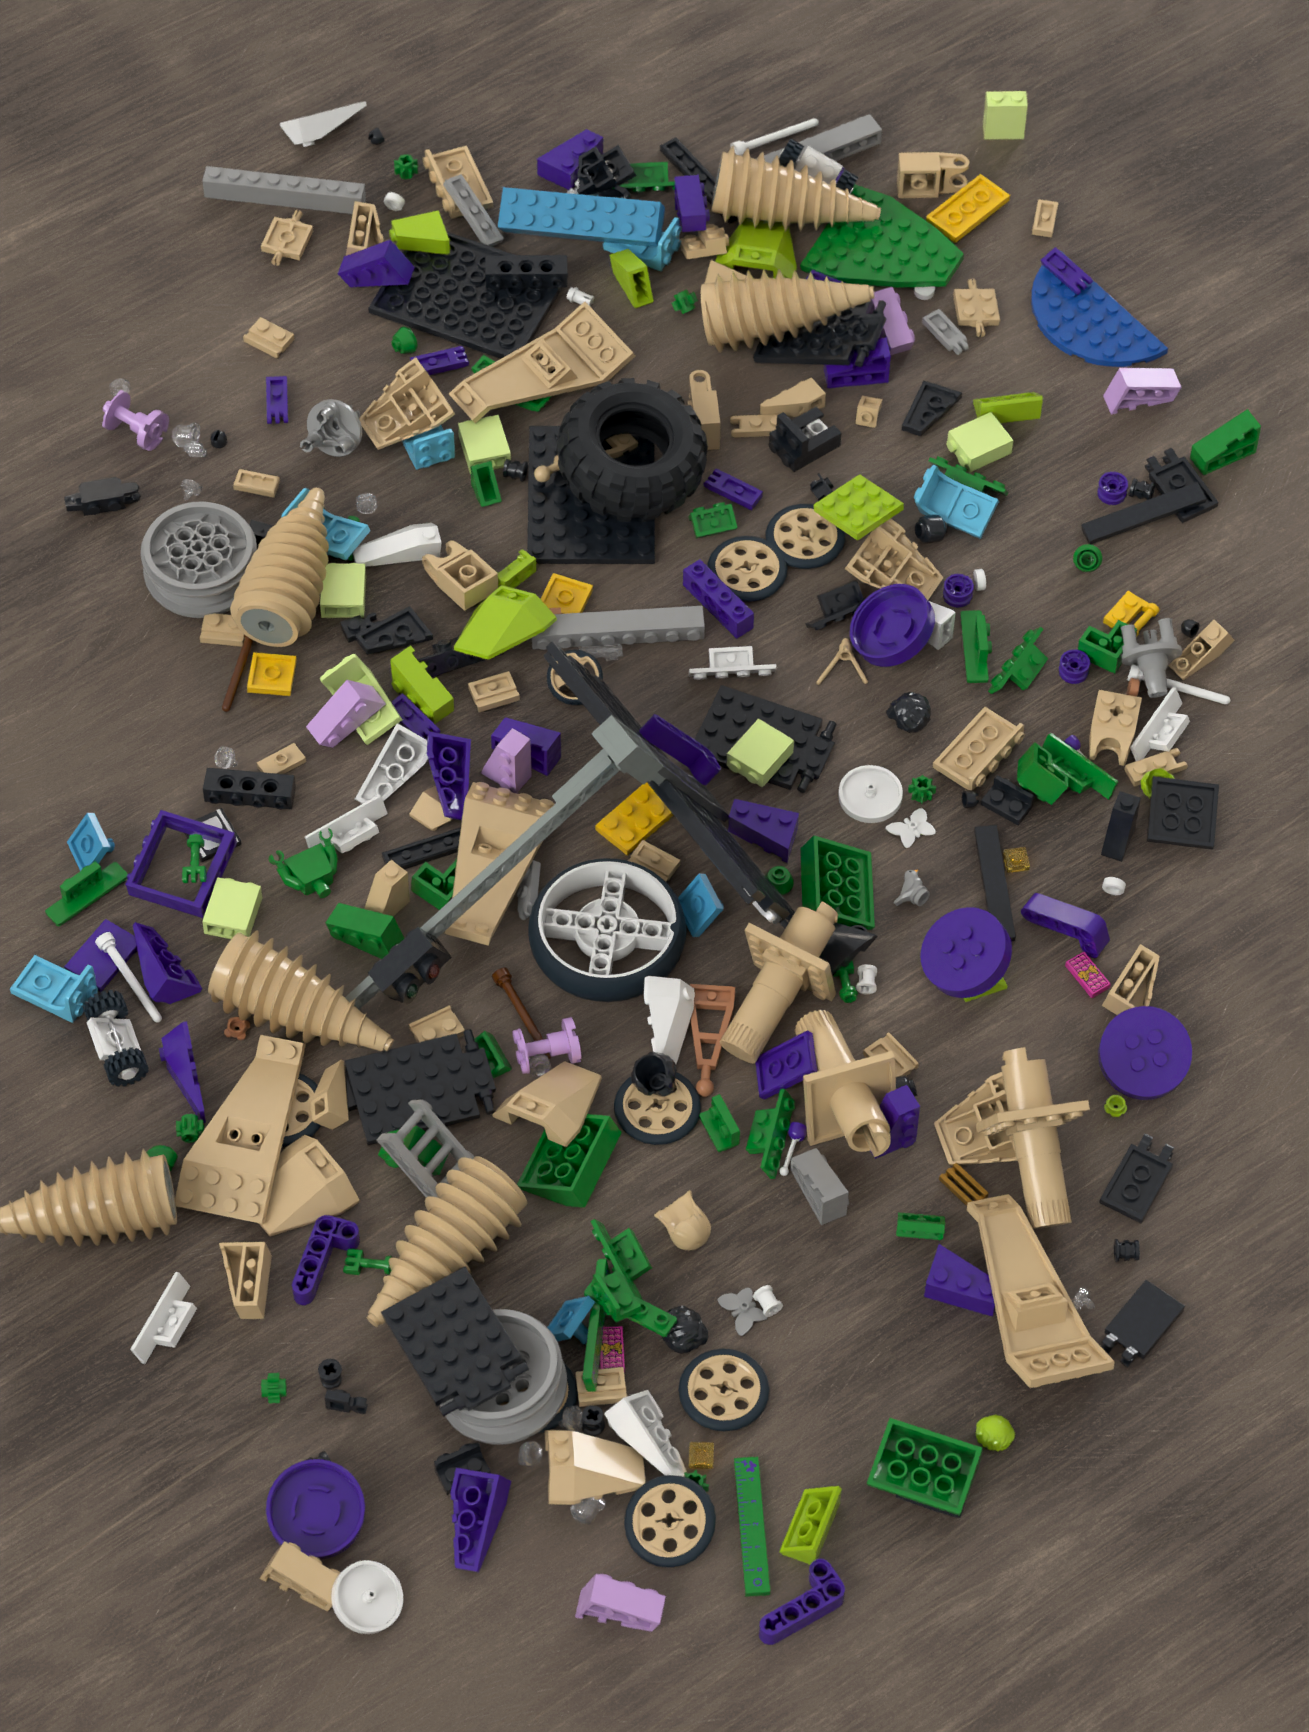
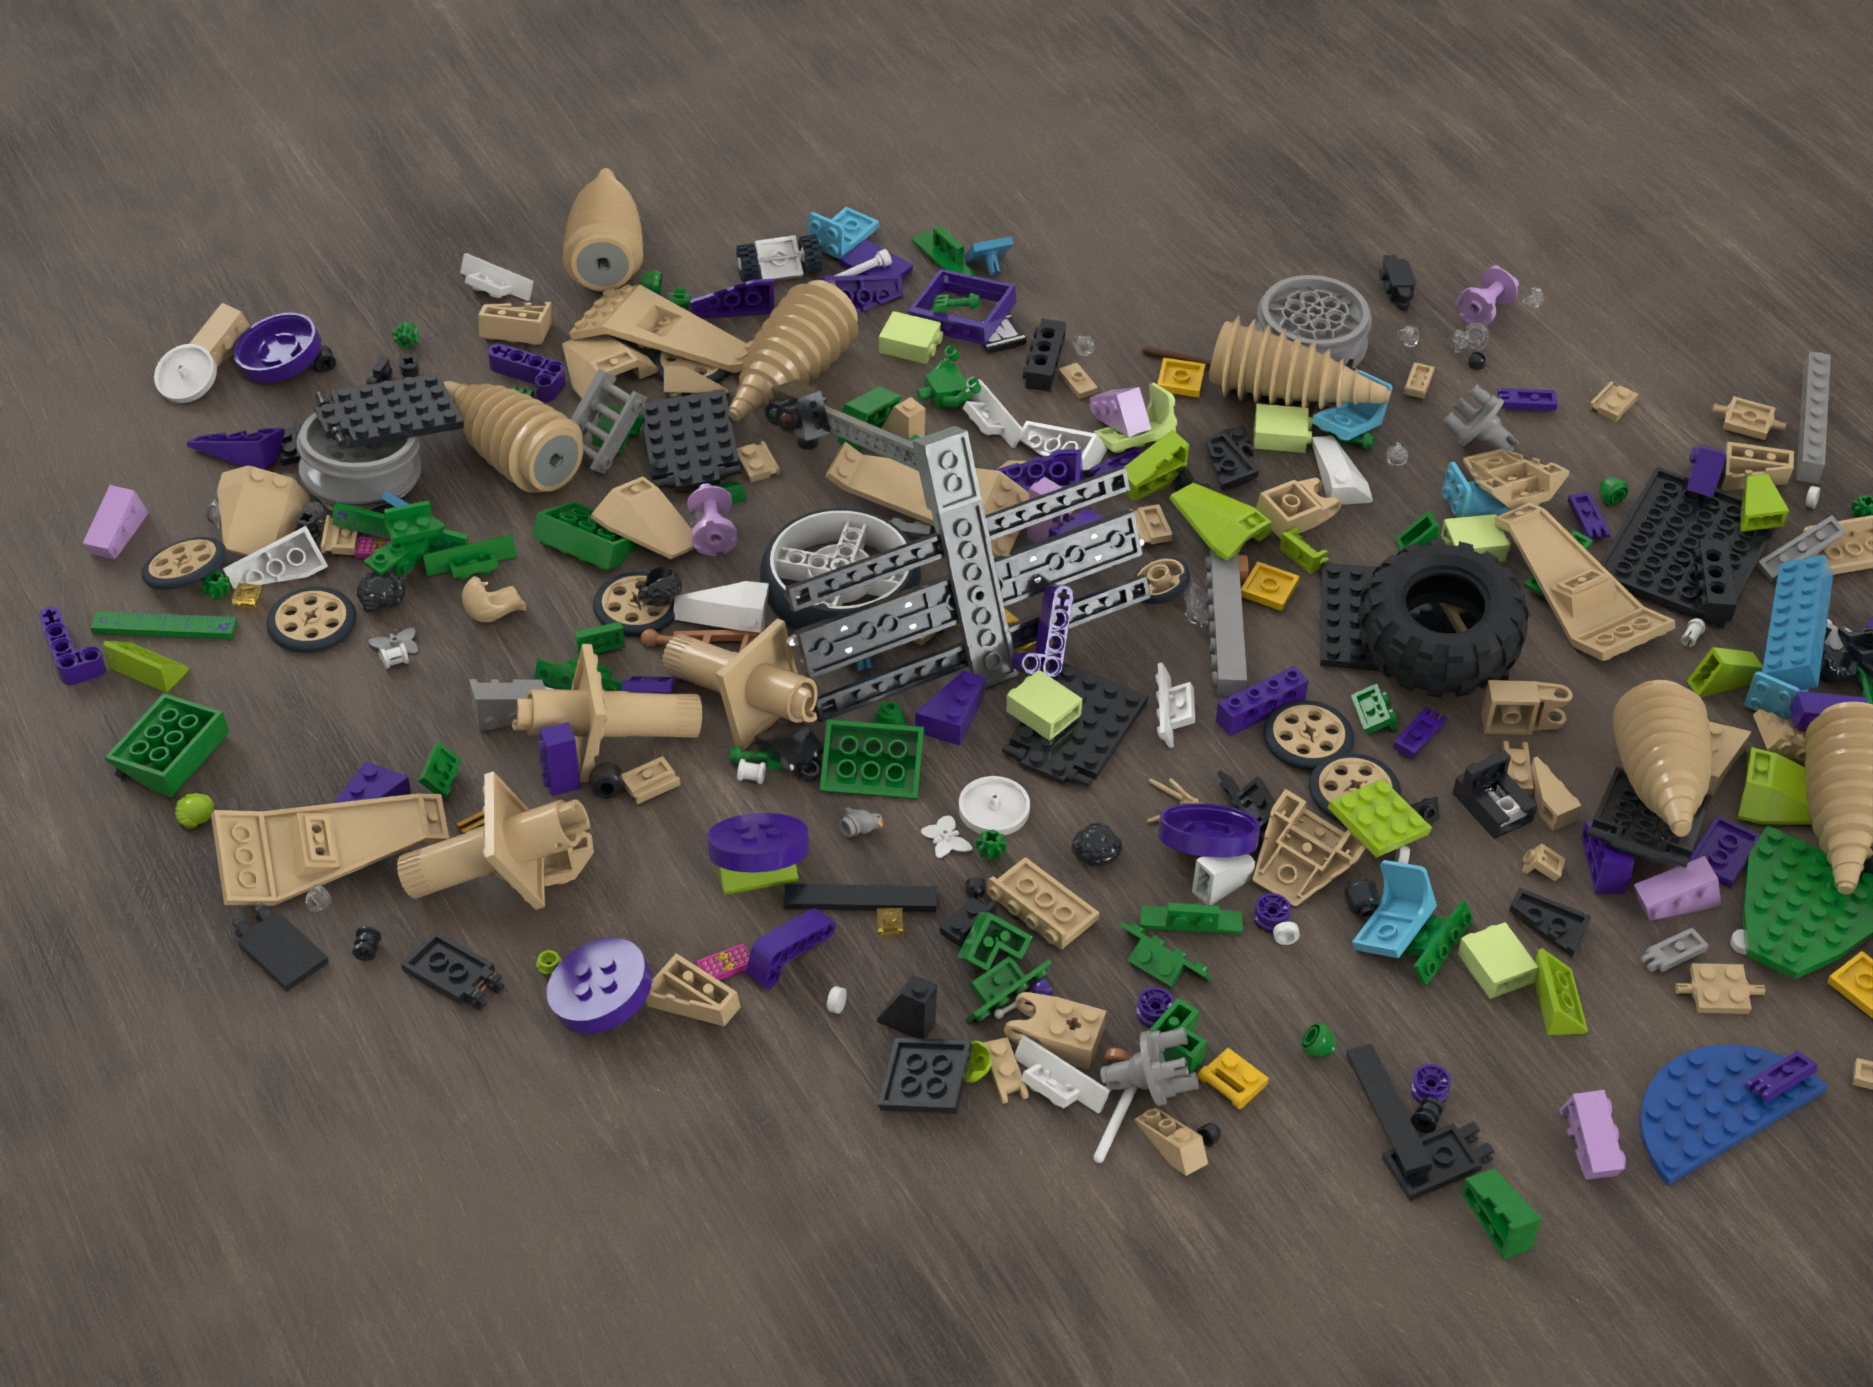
camera: 95 degrees right, 10 degrees down
(503, 979) = (802, 506): reddish brown piece -> none

